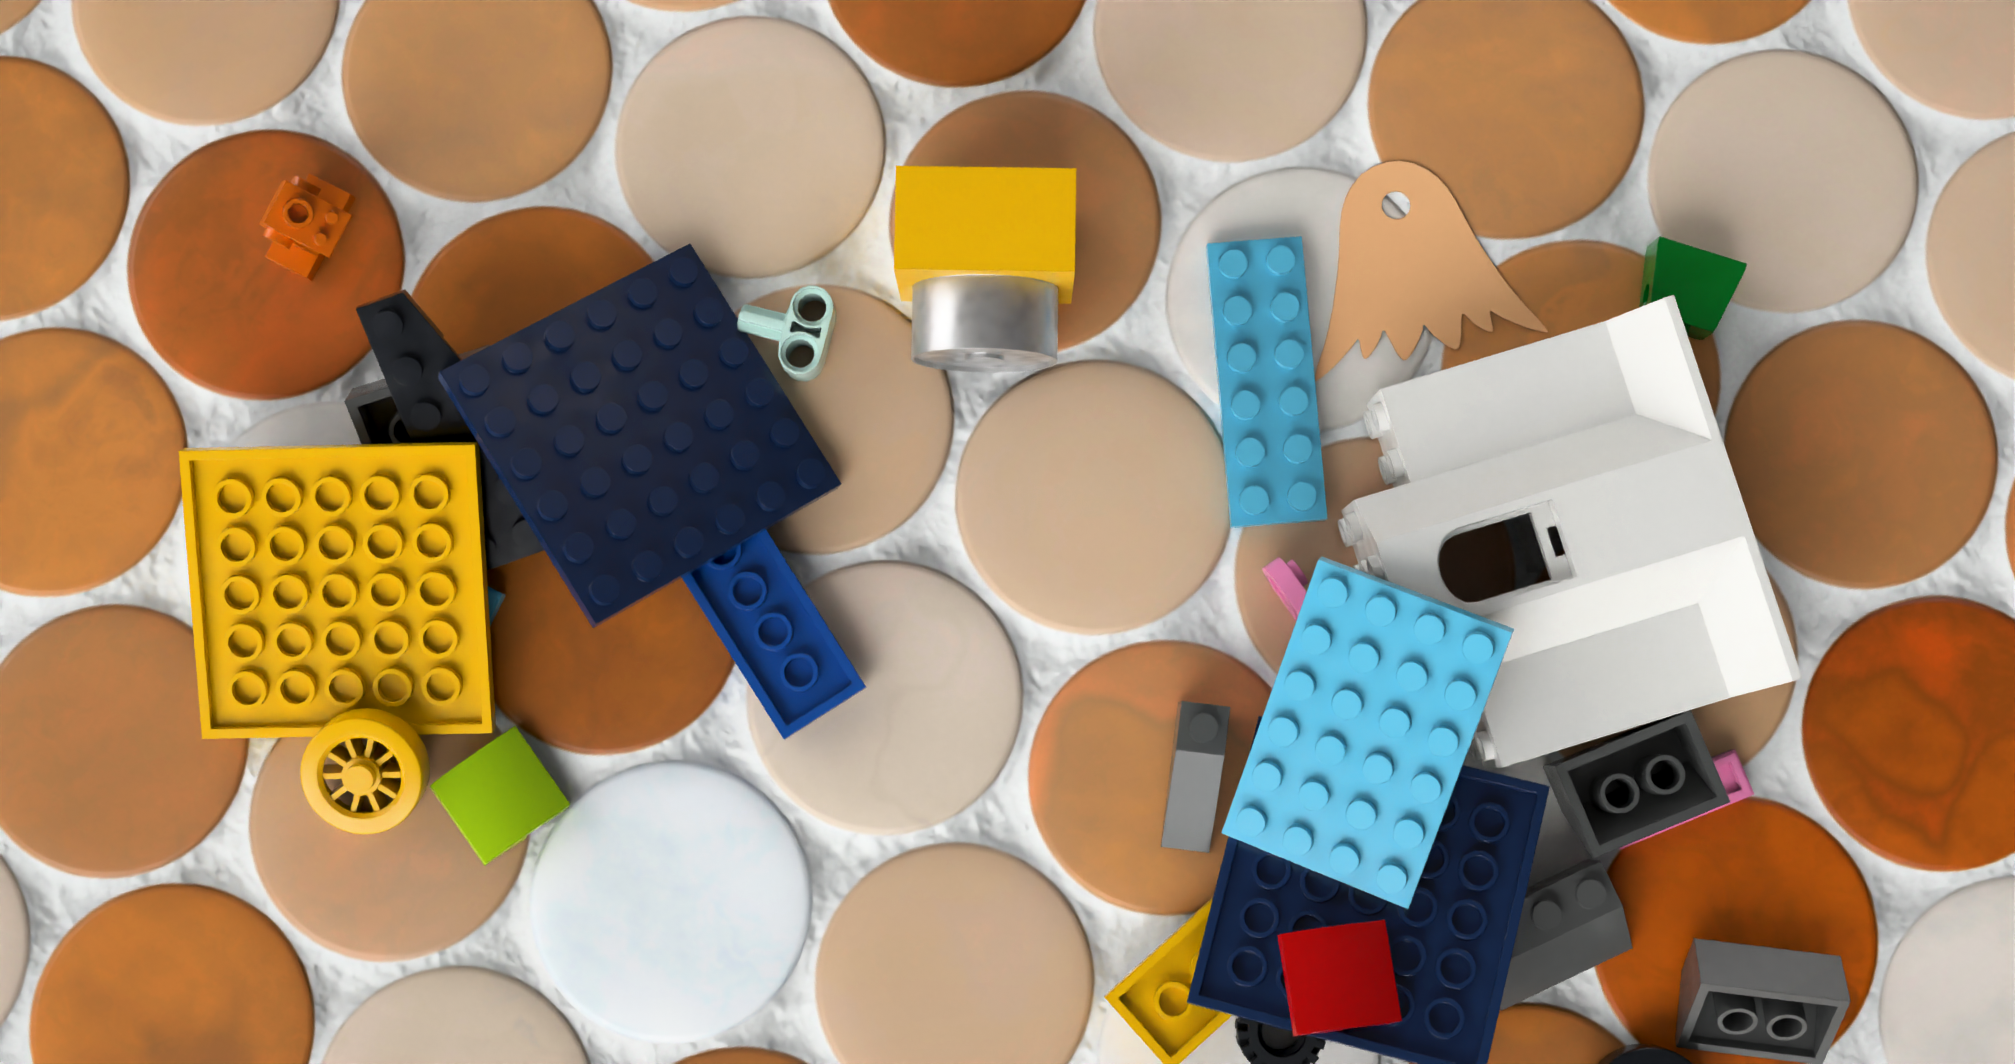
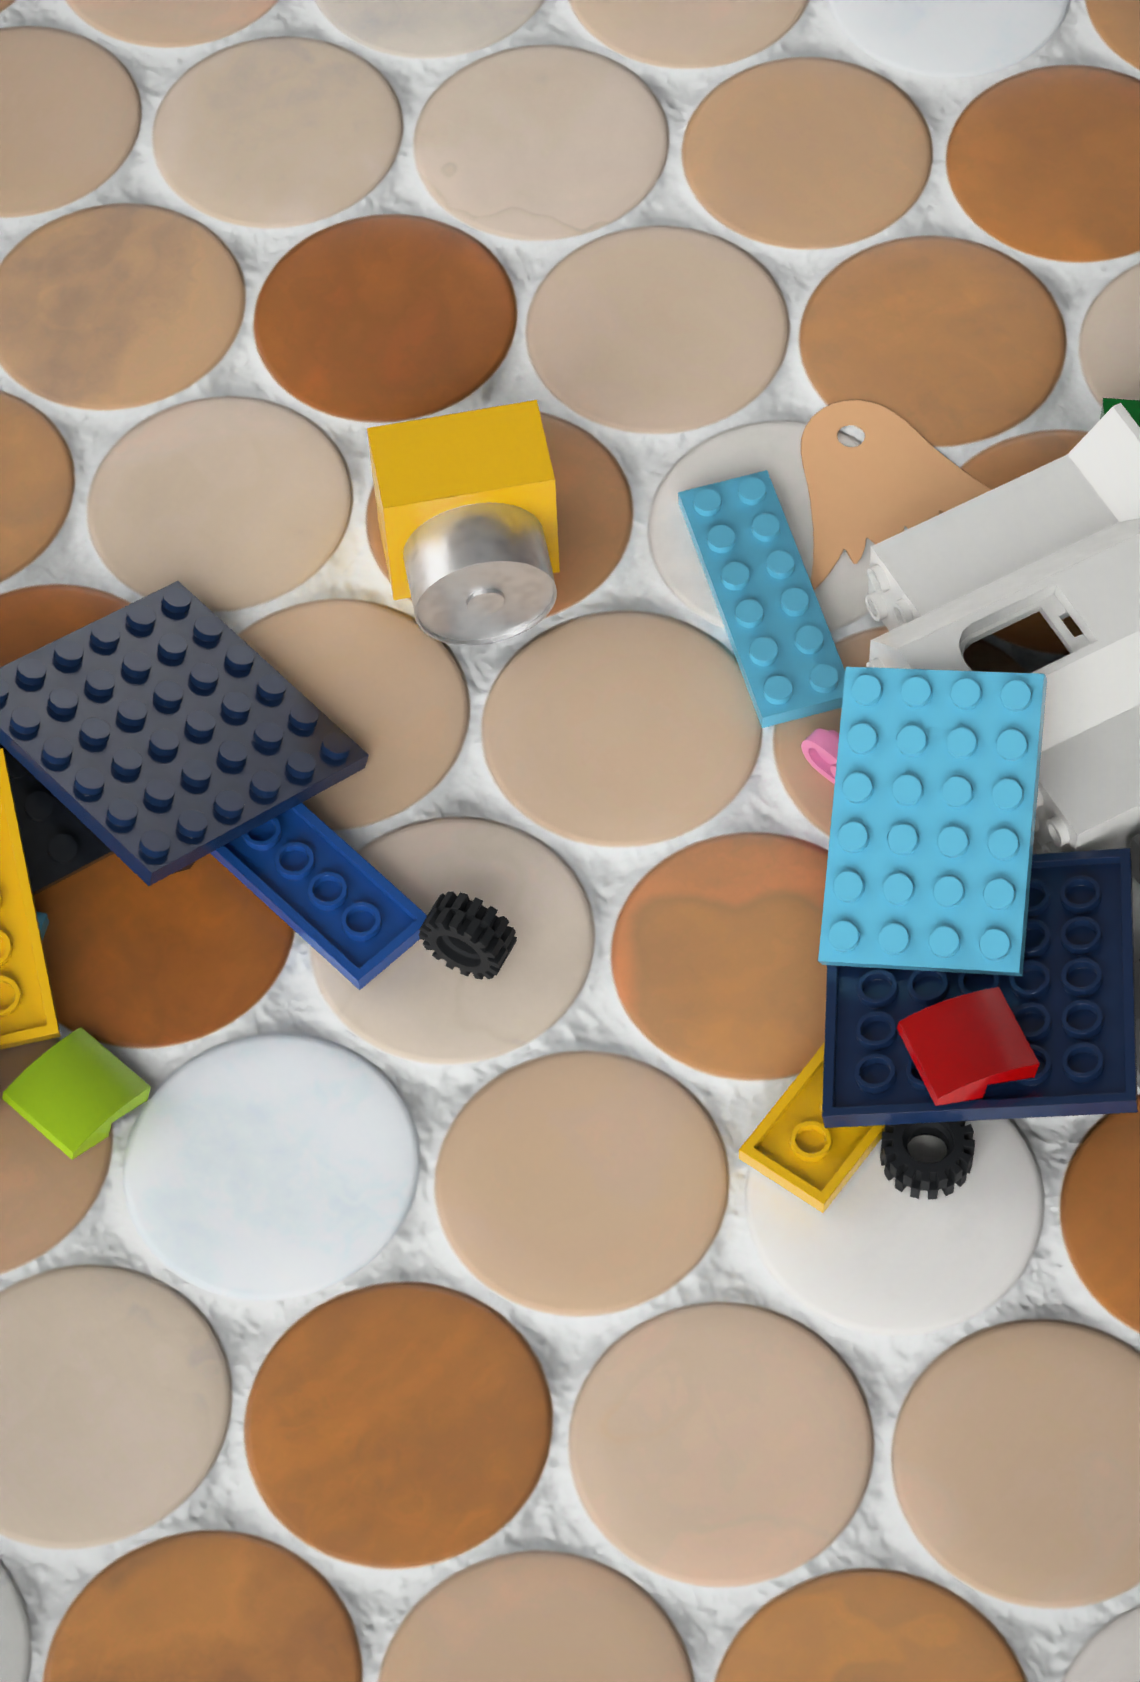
camera: 10 degrees left, 25 degrees down
(793, 330) = (297, 633): light aqua beam -> none
(895, 720) = (467, 935): none -> black tyre
(1195, 775) = (780, 934): slope -> none

